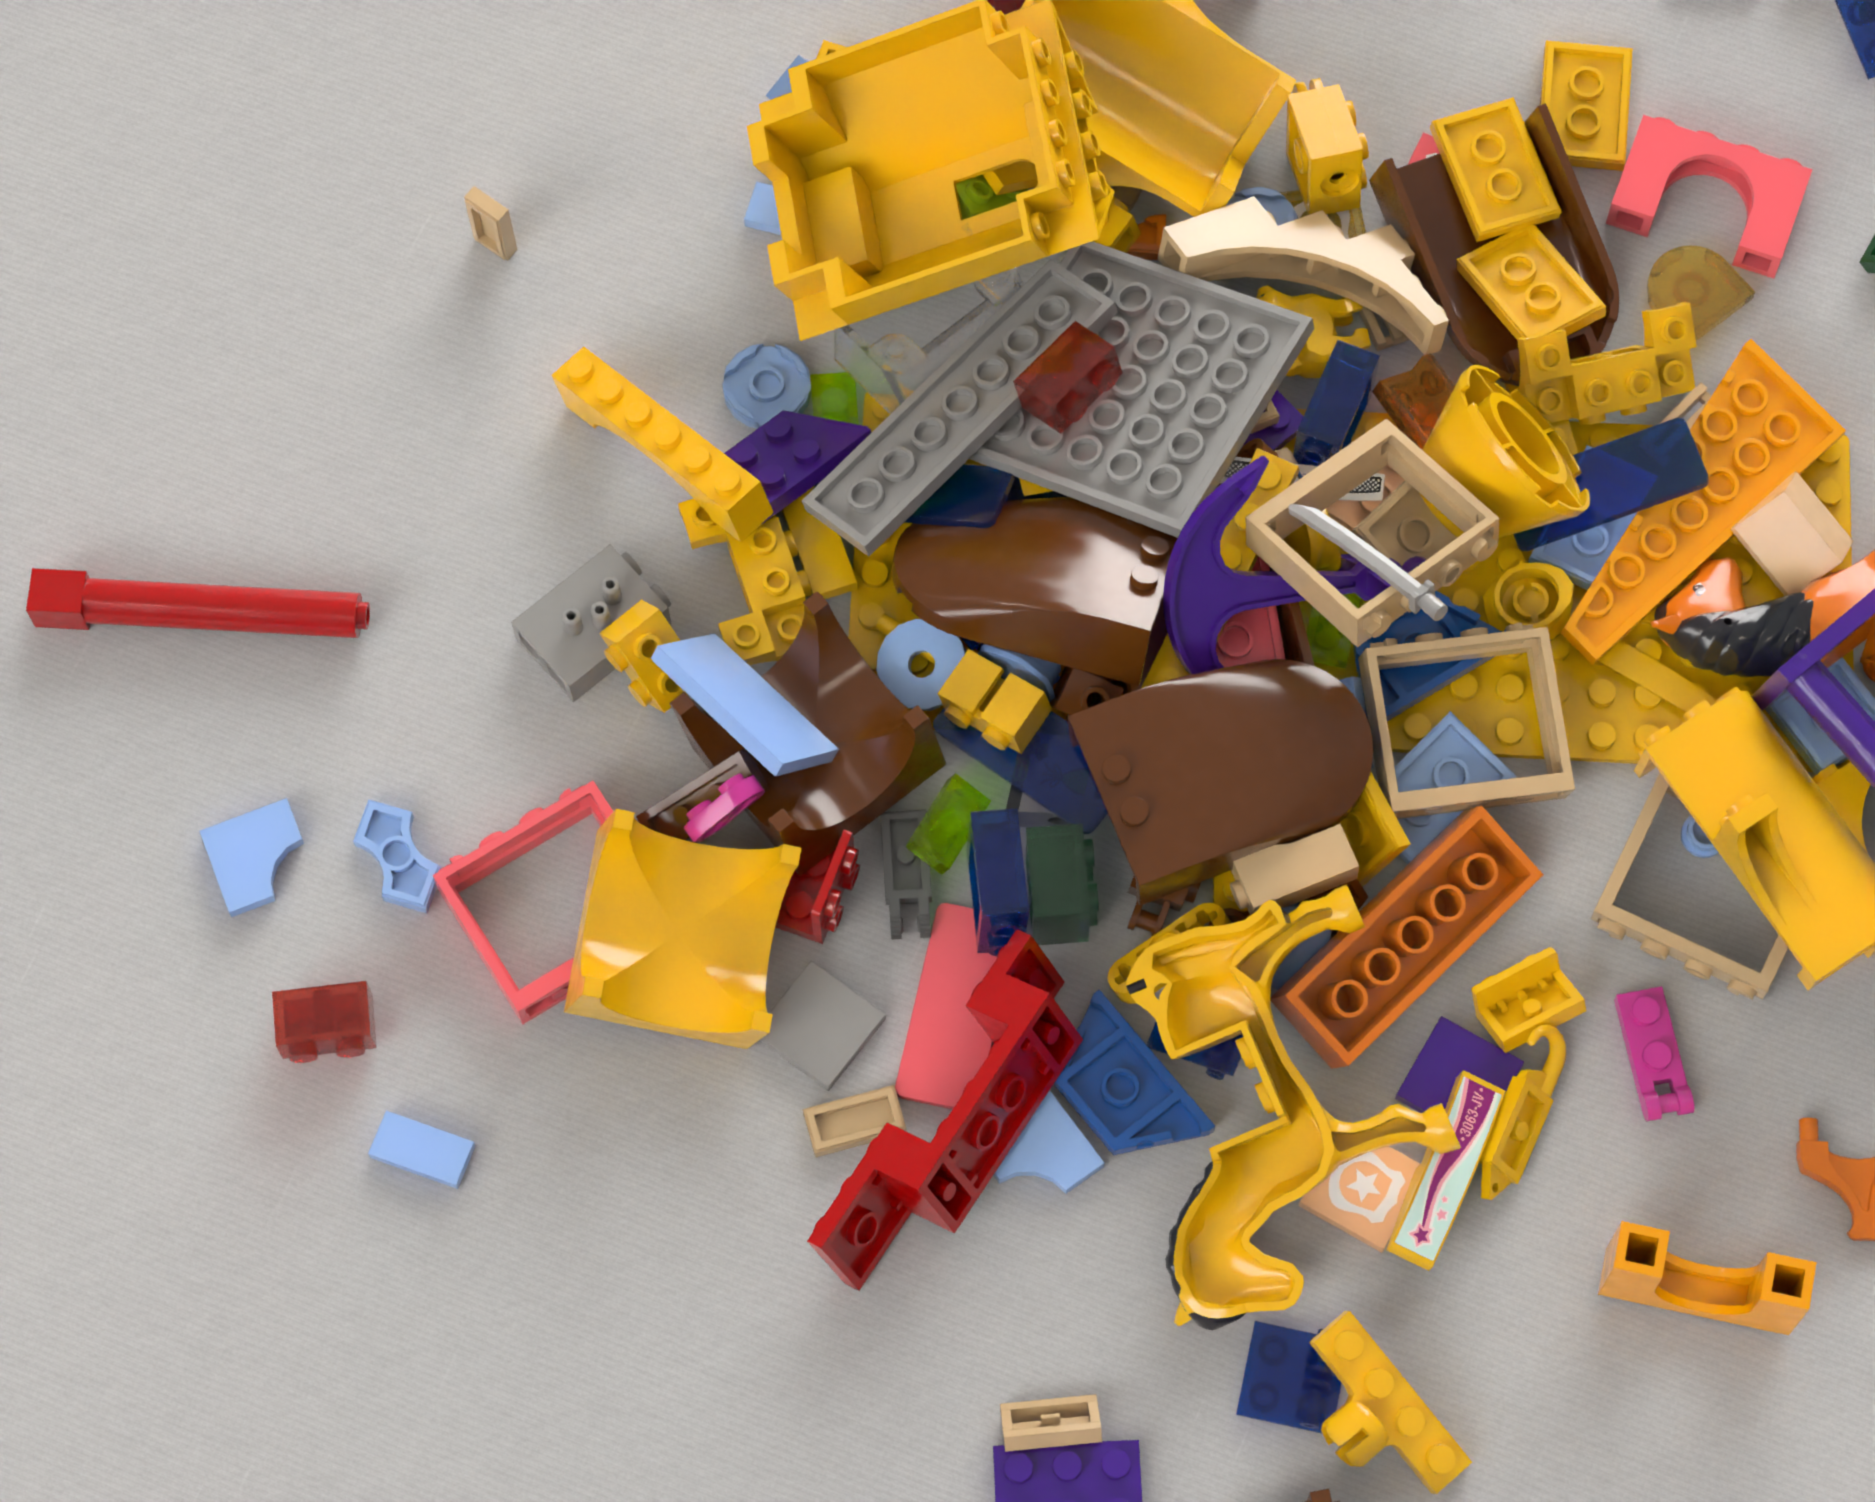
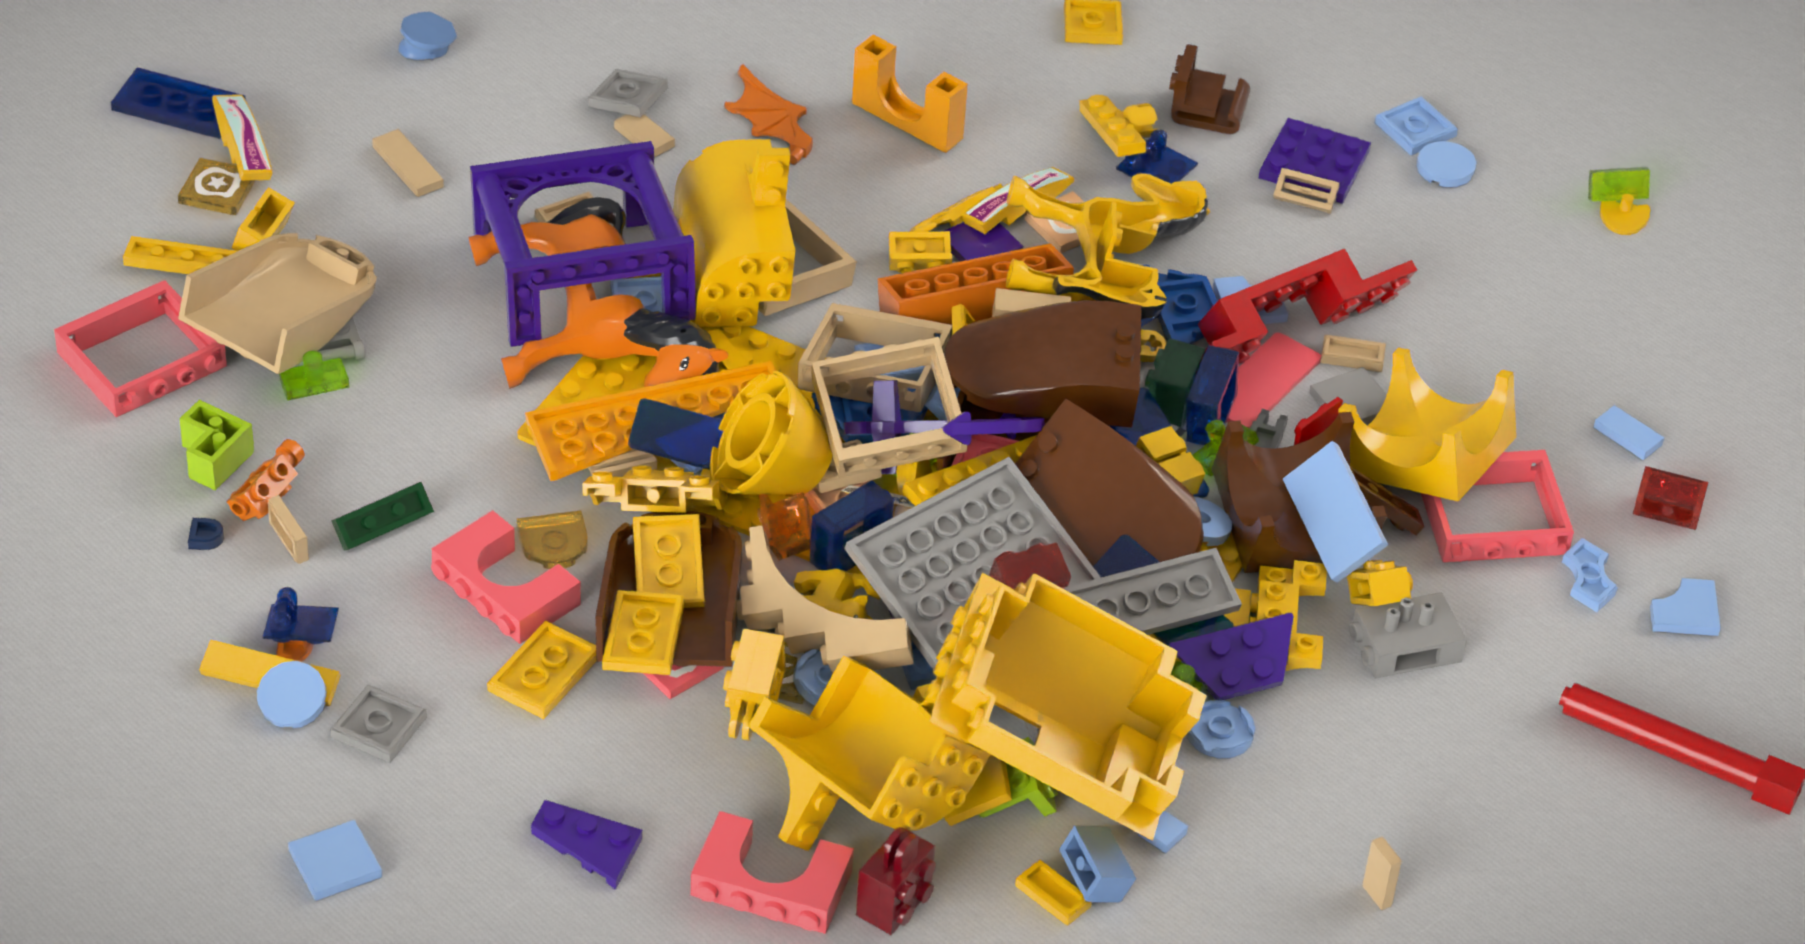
camera: 160 degrees left, 25 degrees down
(711, 817) = (1379, 468): dark pink plate -> none
(713, 479) = (1344, 733): yellow arch -> none
(1419, 595) = (892, 330): light grey sword -> none
(1653, 1052) = (859, 214): dark pink plate -> none
(1793, 536) = (597, 373): tan slope -> none

